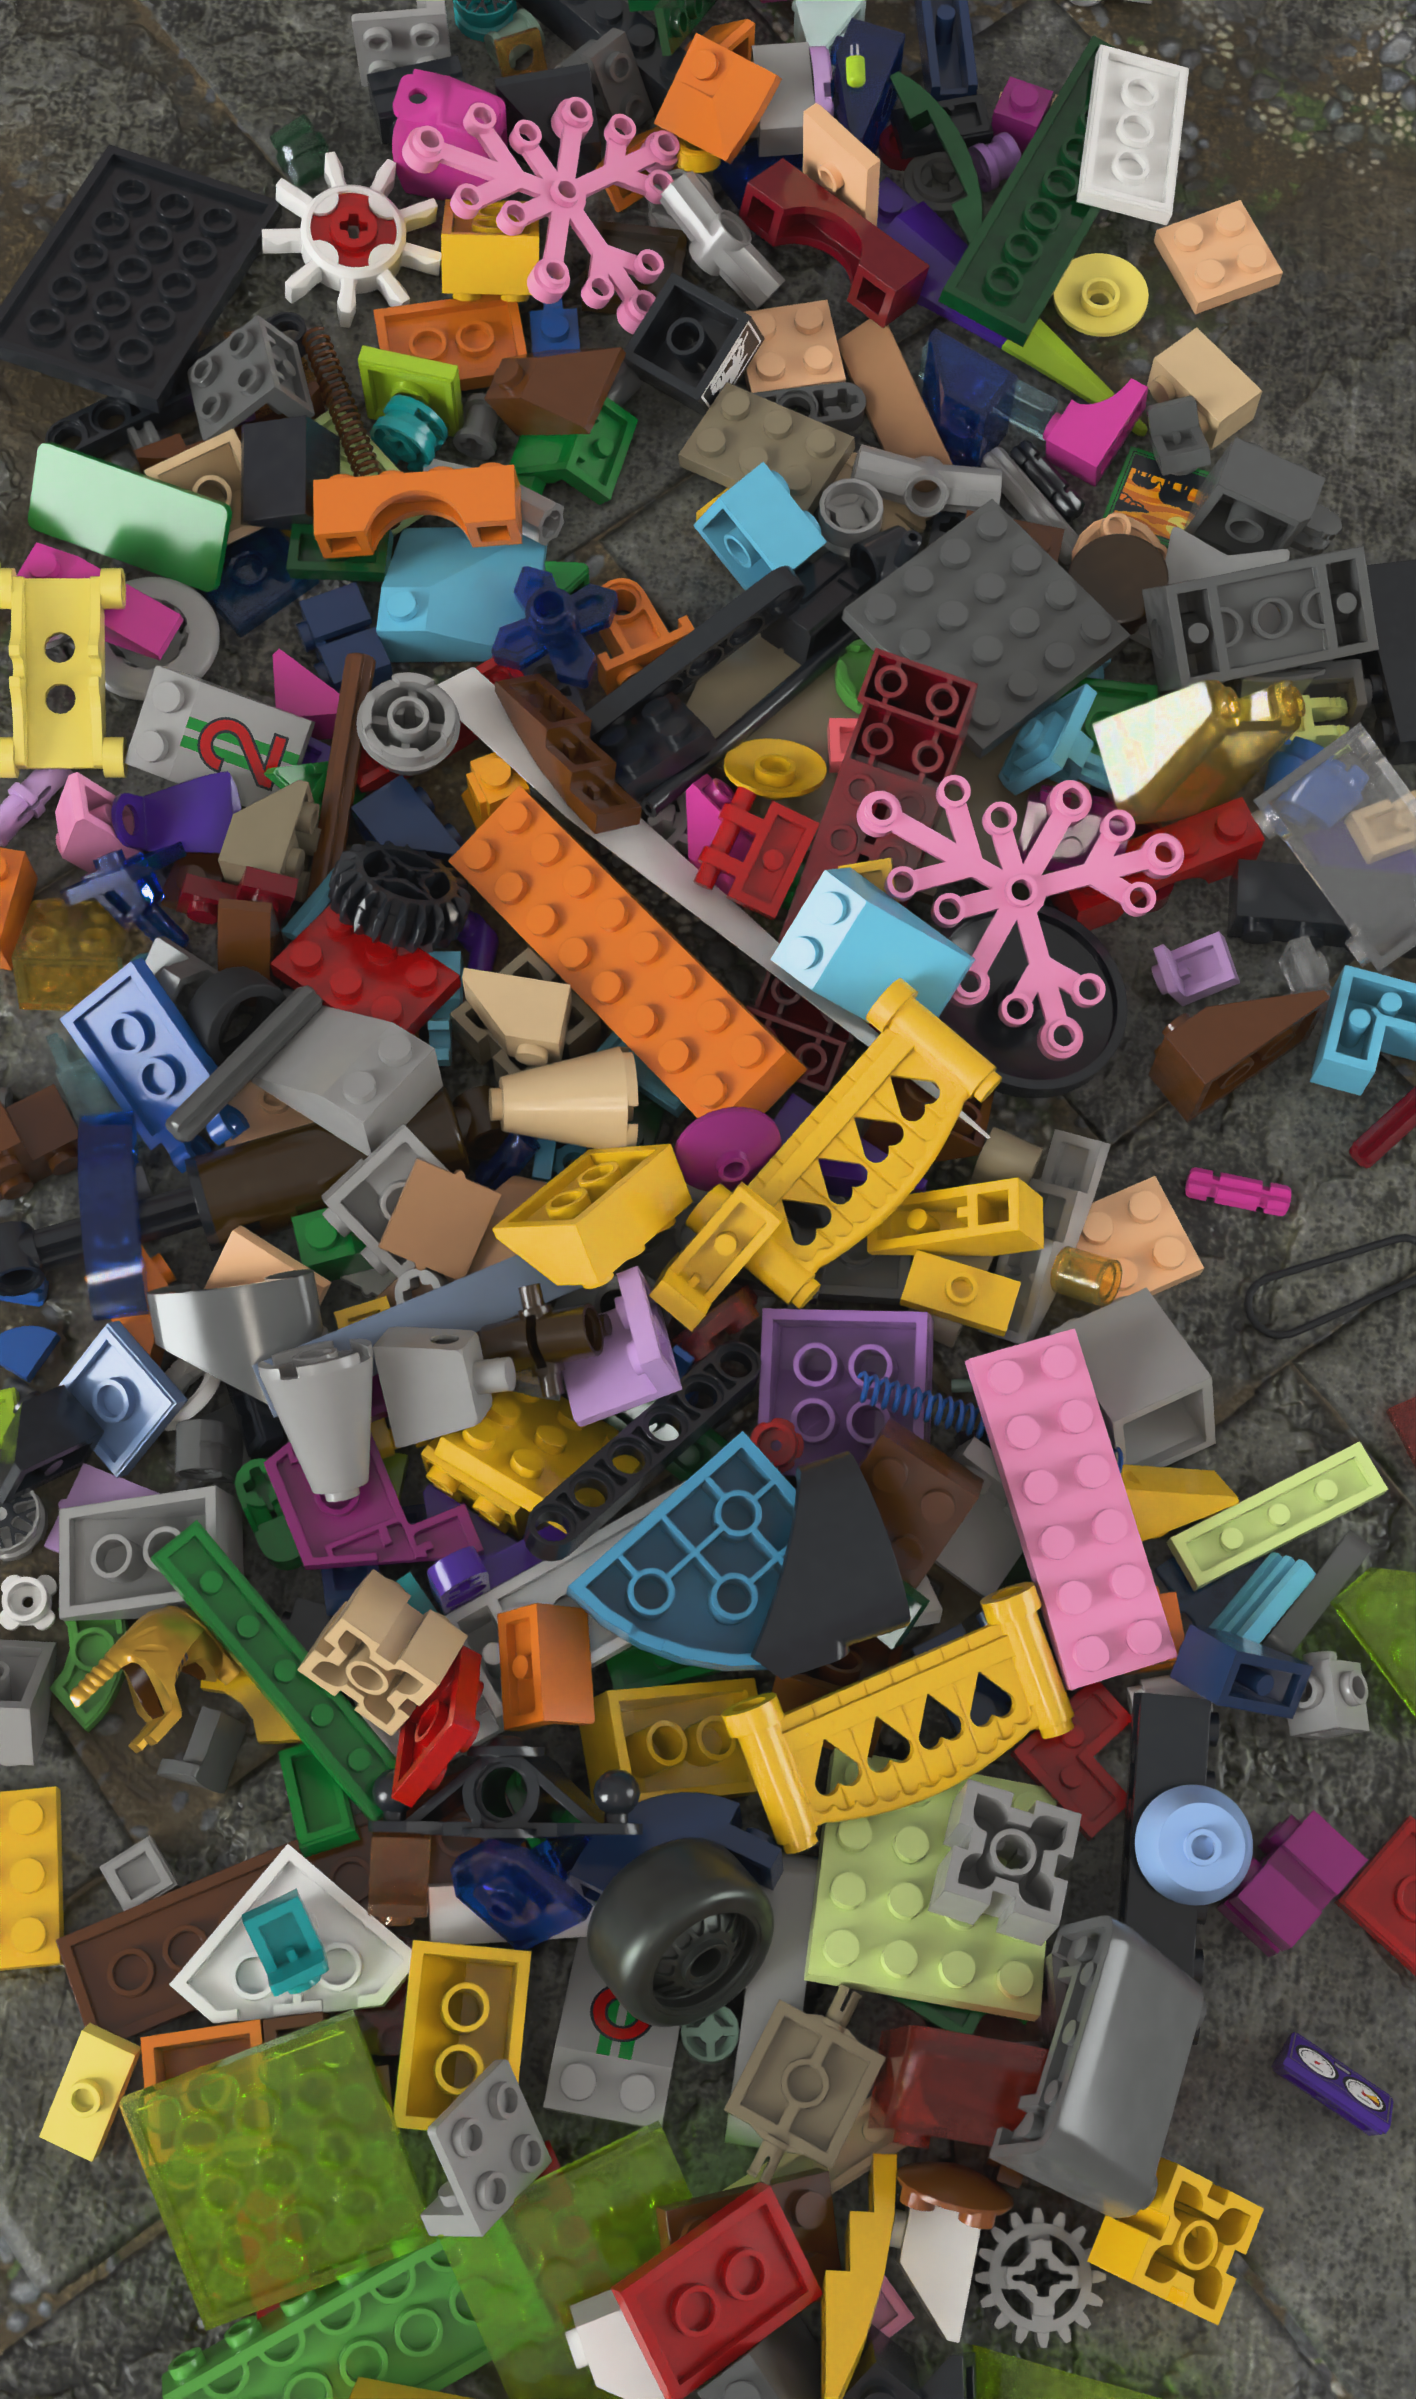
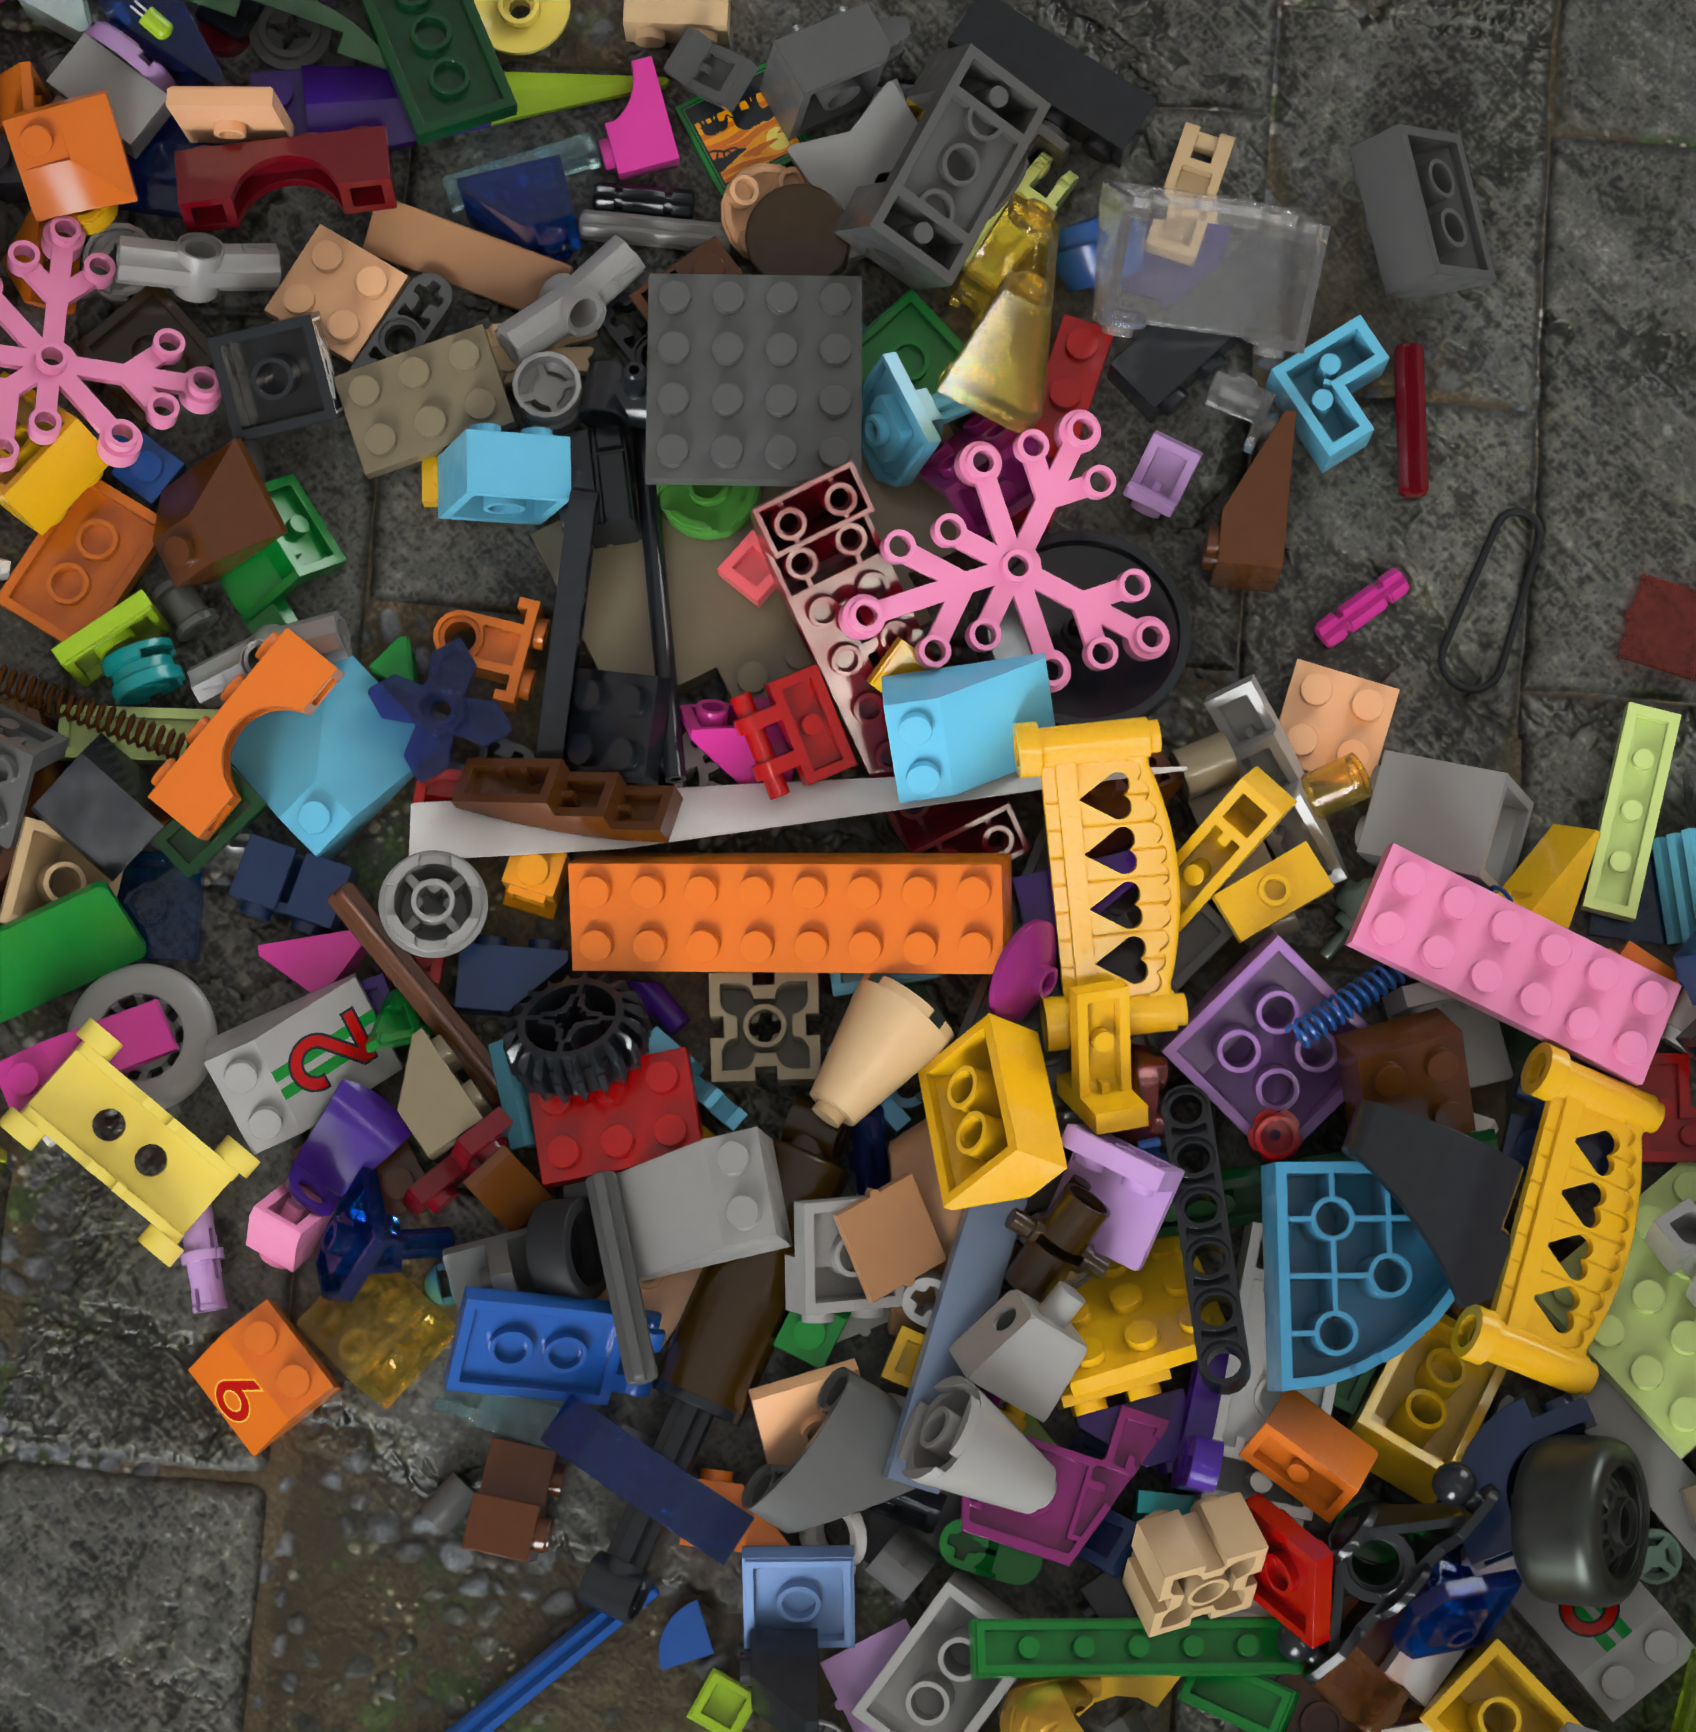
camera: 45 degrees left, 10 degrees up
(521, 1013) = (772, 1030): tan slope -> none
(775, 768) = (724, 649): yellow dish -> none

